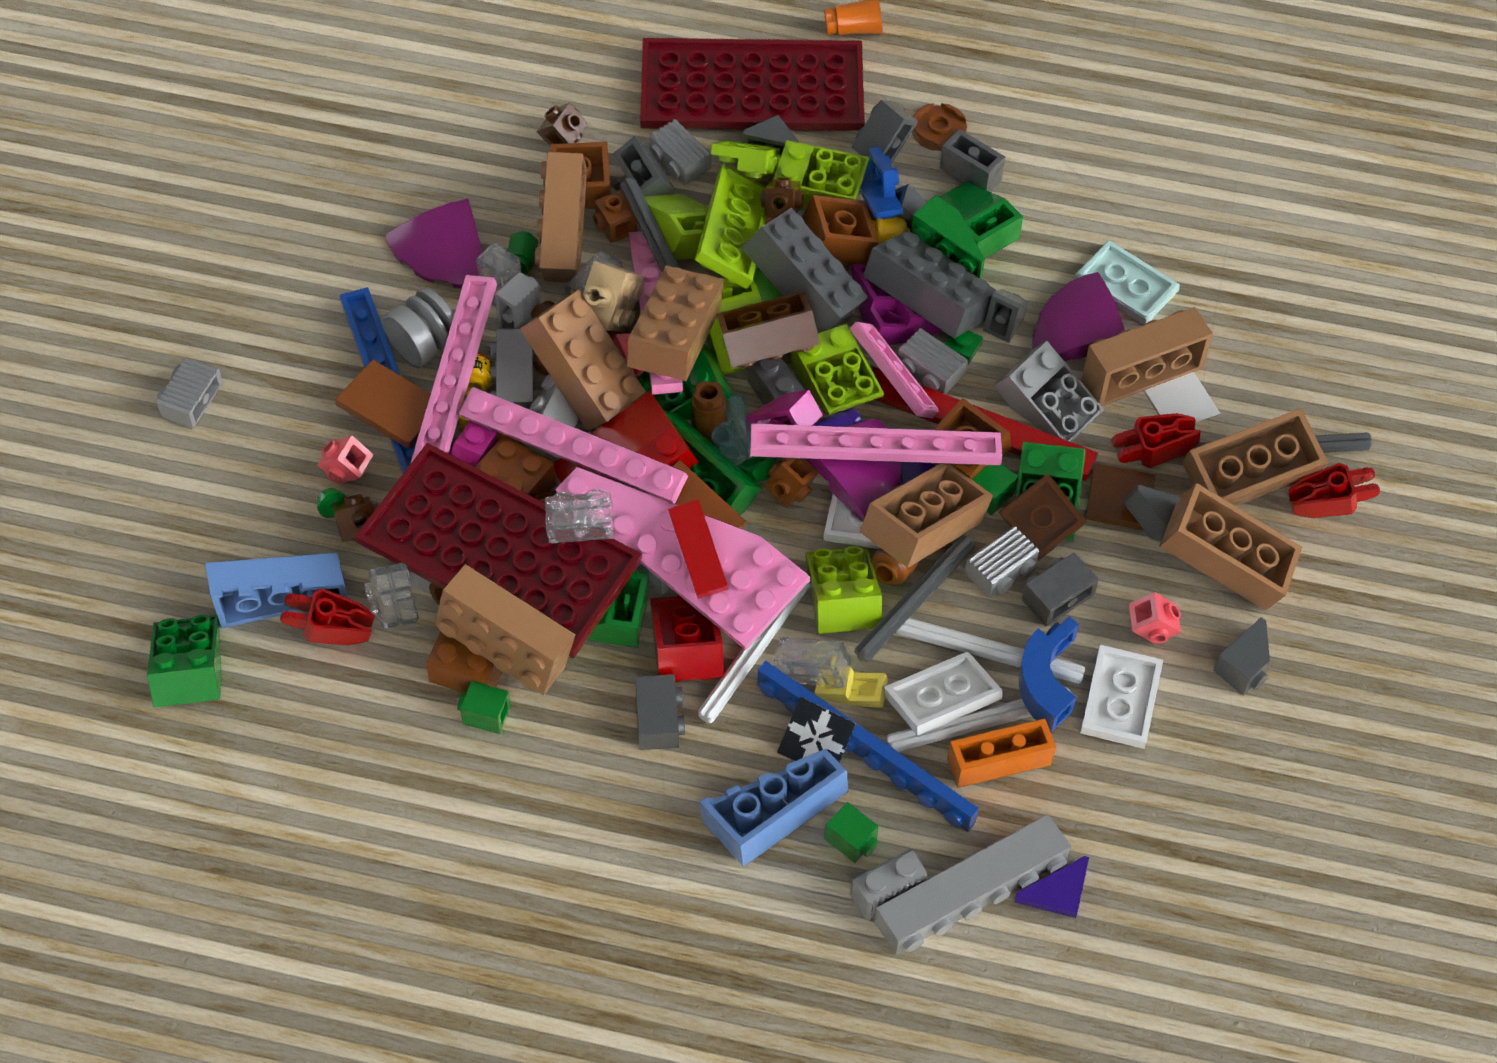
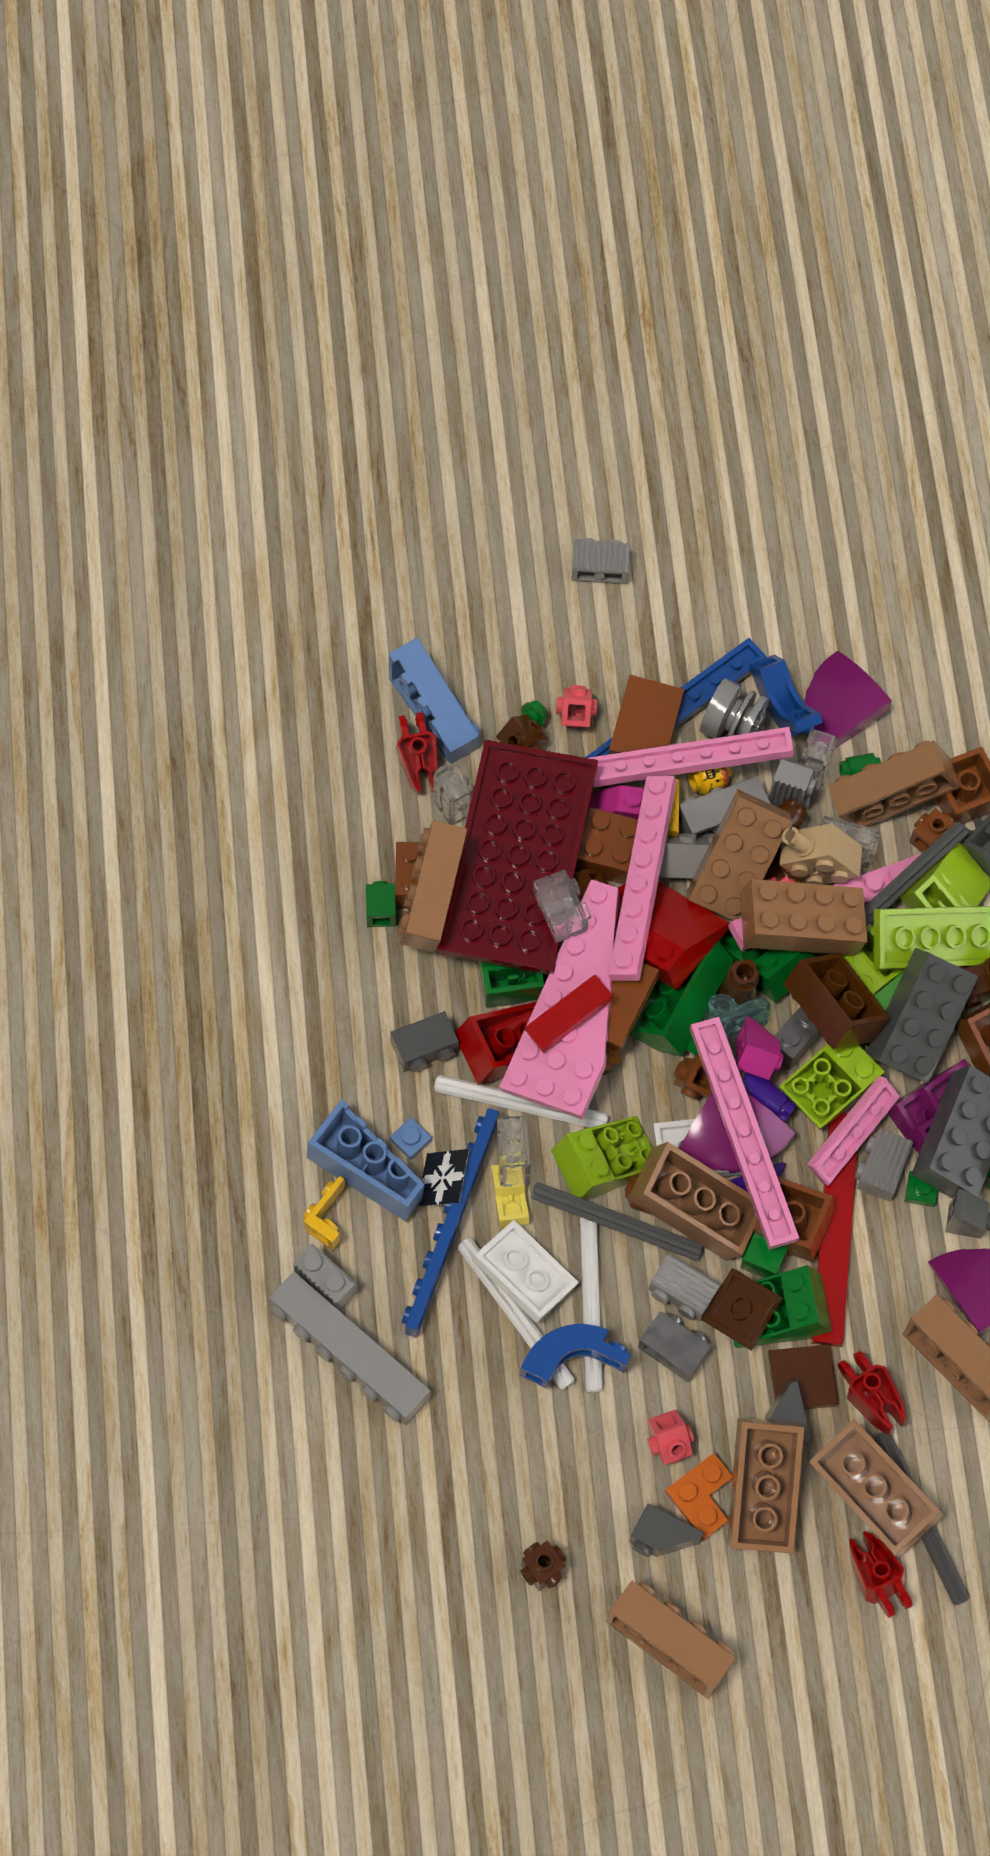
camera: 70 degrees right, 10 degrees up
(185, 661) = (342, 663): green slope -> none
(393, 286) = (784, 702): none -> blue arch
(757, 760) = (410, 1138): none -> medium blue plate
(832, 871) = (324, 1230): none -> yellow bracket
(852, 833) = (364, 1235): green brick -> none
(1001, 753) = (480, 1336): orange brick -> none
(1048, 393) = (890, 1283): light grey slope -> none
(1058, 891) = (371, 1425): dark purple tile -> none
(1122, 696) = (582, 1430): white plate -> none
(1183, 396) = (941, 1412): white sticker -> none
(1207, 621) = (693, 1493): none -> orange plate
(1256, 770) = (543, 1576): none -> reddish brown brick
(1360, 677) = (670, 1638): none -> medium nougat brick

